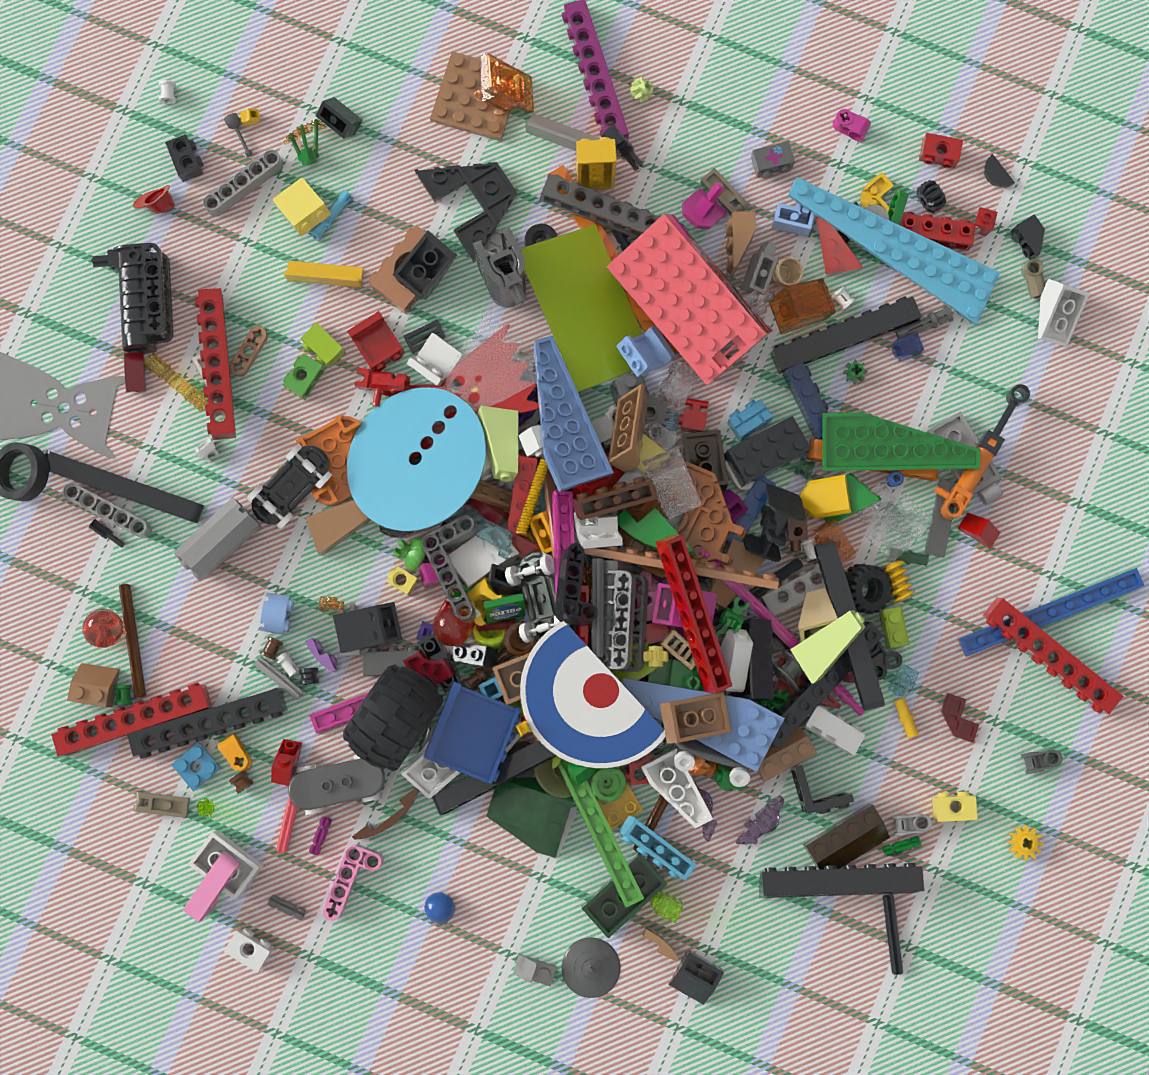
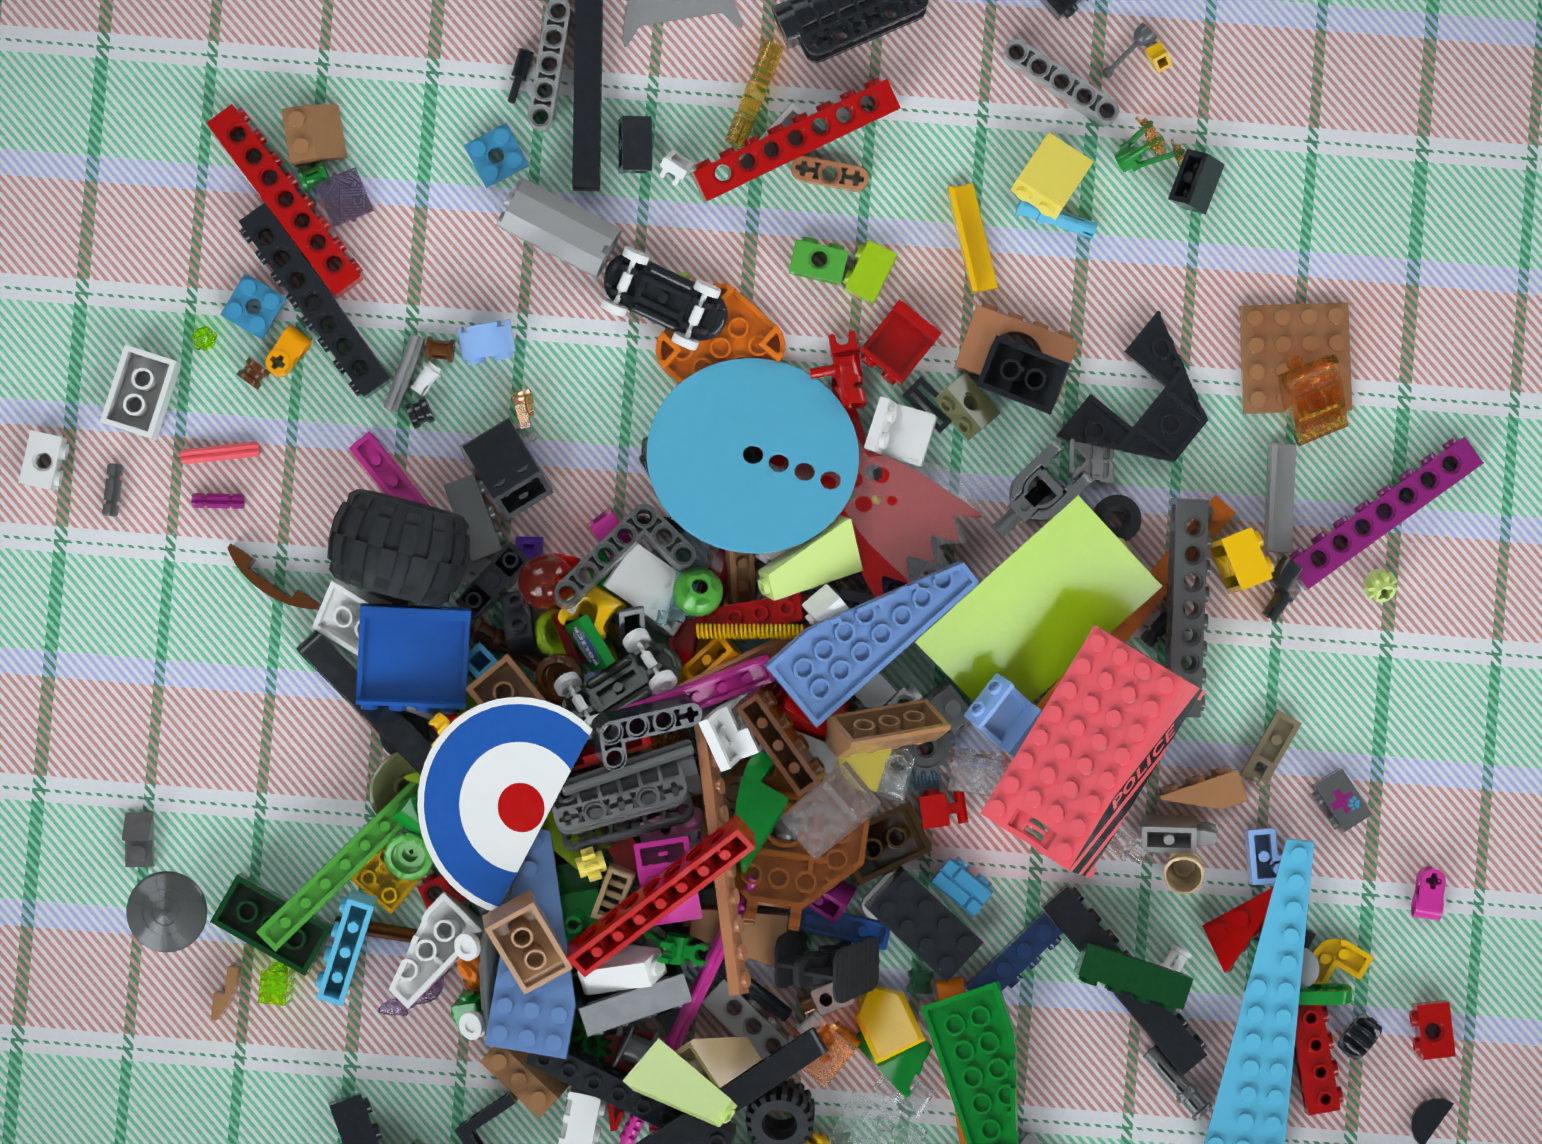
camera: 70 degrees right, 5 degrees up
(102, 628) = (391, 119): clear red piece -> none
(132, 640) = (409, 150): reddish brown axle -> none
(134, 372) = (749, 31): dark red slope -> none
(144, 561) = (501, 139): none -> dark azure piece
(144, 679) = (344, 197): none -> clear purple piece
(162, 804) = (190, 279): dark tan plate -> none
(181, 471) = (634, 144): none -> black hinge
(207, 894) = (106, 387): bright pink beam -> none
(285, 762) = (297, 422): red slope -> none
(328, 661) = (448, 428): medium lavender slope -> none
(335, 525) = (630, 376): medium nougat slope -> none
(335, 784) = (289, 497): dark grey piece -> none
(348, 883) = (169, 558): bright pink beam -> none
(410, 584) = (588, 504): light yellow brick -> none
(411, 552) = (627, 492): bright green hair -> none
(433, 311) = (967, 406): none -> olive brick
(435, 669) = (481, 580): dark red tile -> none
(439, 908) = (177, 689): blue hair -> none
(499, 530) = (695, 603): none -> bright green piece
(530, 814) = (336, 766): dark green wedge -> none
(696, 977) = (199, 1052): black slope -> none
(702, 208) = (1237, 726): dark pink piece -> none
(766, 821) = (428, 1079): clear purple animal -> none
(802, 305) = (1145, 907): clear orange slope -> none
(849, 319) = (1134, 975): none -> dark green brick
(858, 368) = (1084, 1011): green gear -> none
(898, 476) = (943, 1115): blue pin -> none
(907, 347) = (1135, 1069): clear blue brick -> none
(985, 220) = (1350, 1122): red bracket -> none

